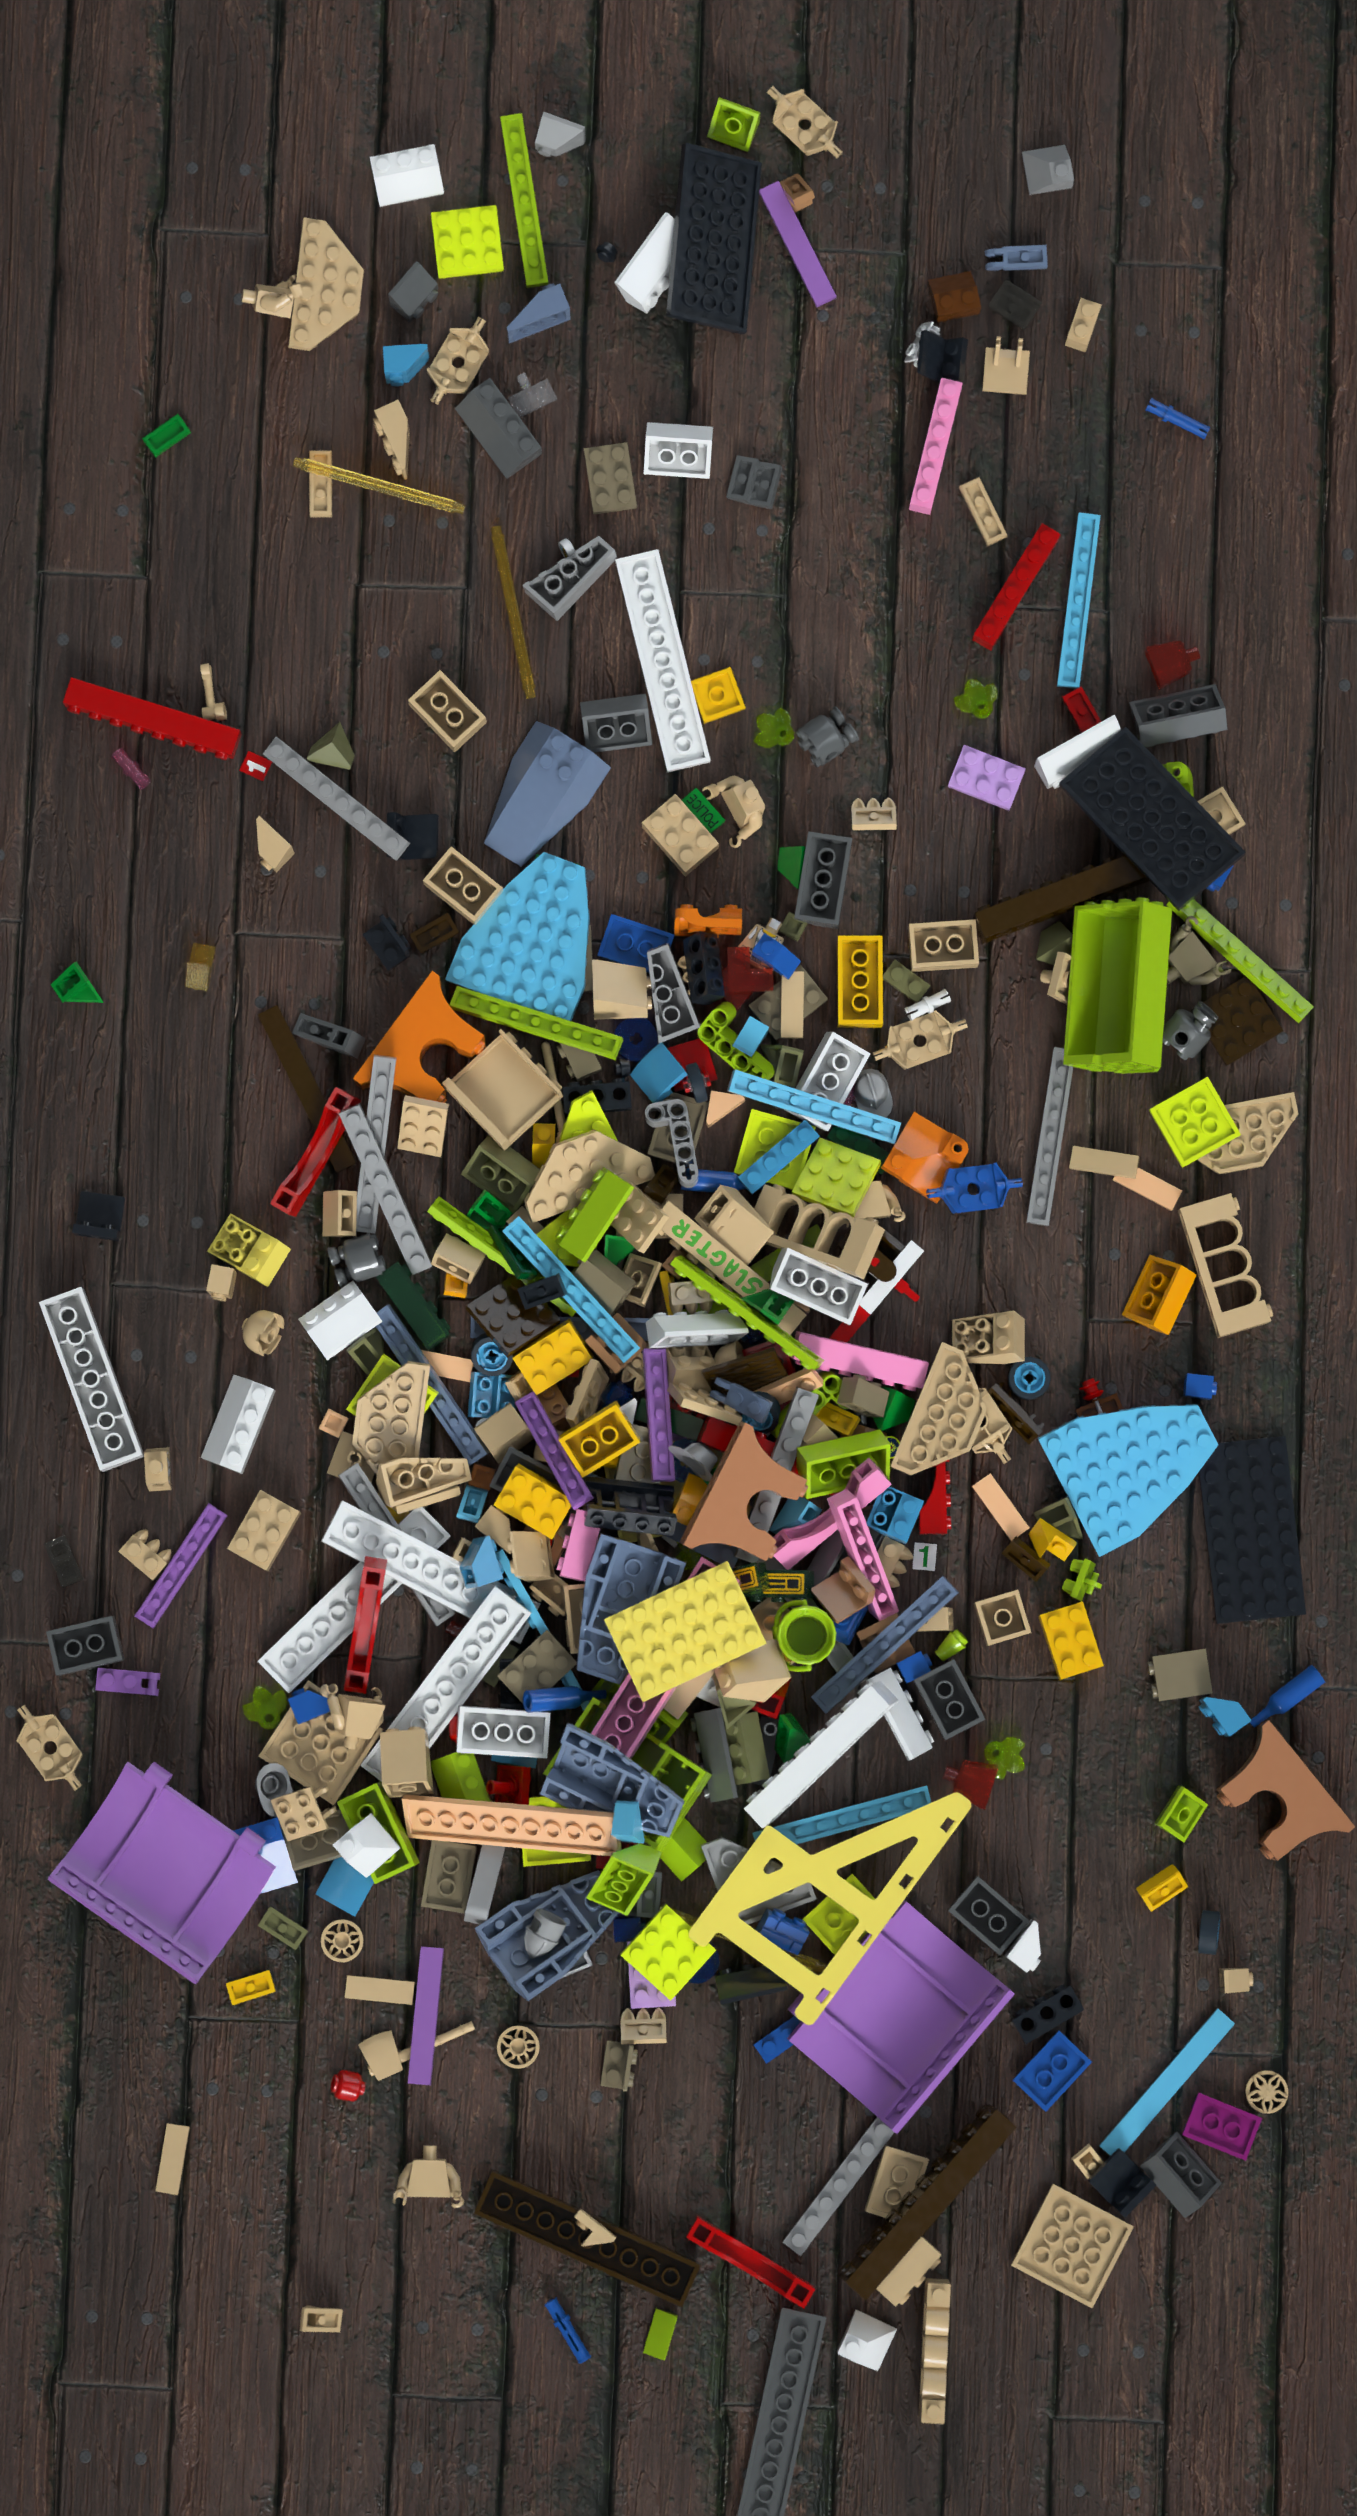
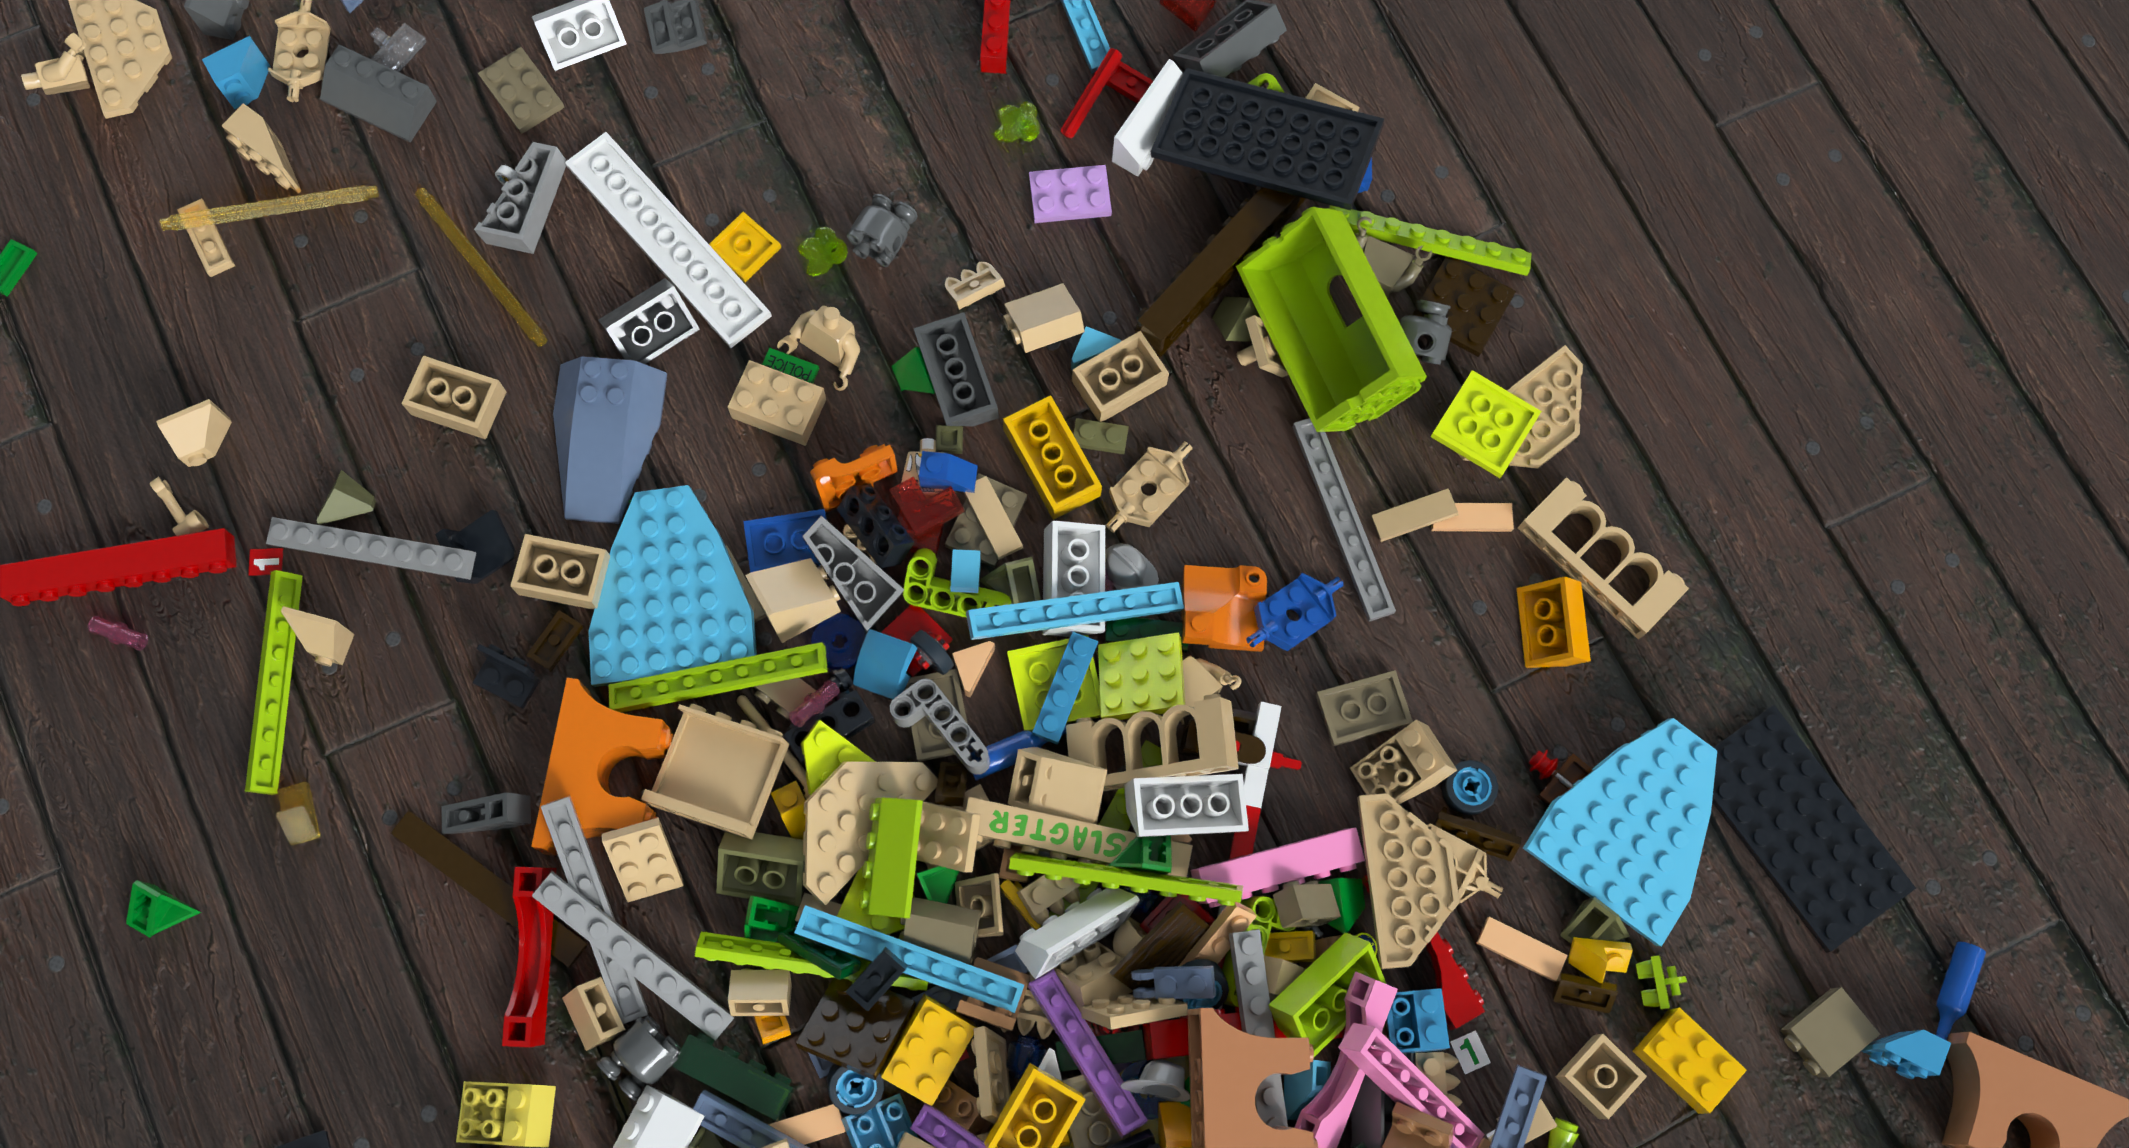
camera: 30 degrees left, 10 degrees down
(224, 862) = (273, 686): none -> lime plate
(249, 645) = (195, 432): none -> tan slope
(518, 1386) = (904, 1106): tan tile -> none
(595, 1076) = (814, 703): none -> clear pink pin
(910, 870) = (1043, 318): none -> tan brick
(927, 1004) = (1136, 447): white pin -> none
(935, 911) = (1090, 345): none -> medium azure slope
(985, 1282) = (1364, 708): none -> dark tan plate
(1045, 704) = (1091, 93): none -> red axle
(1199, 1386) = (1653, 700): blue brick -> none

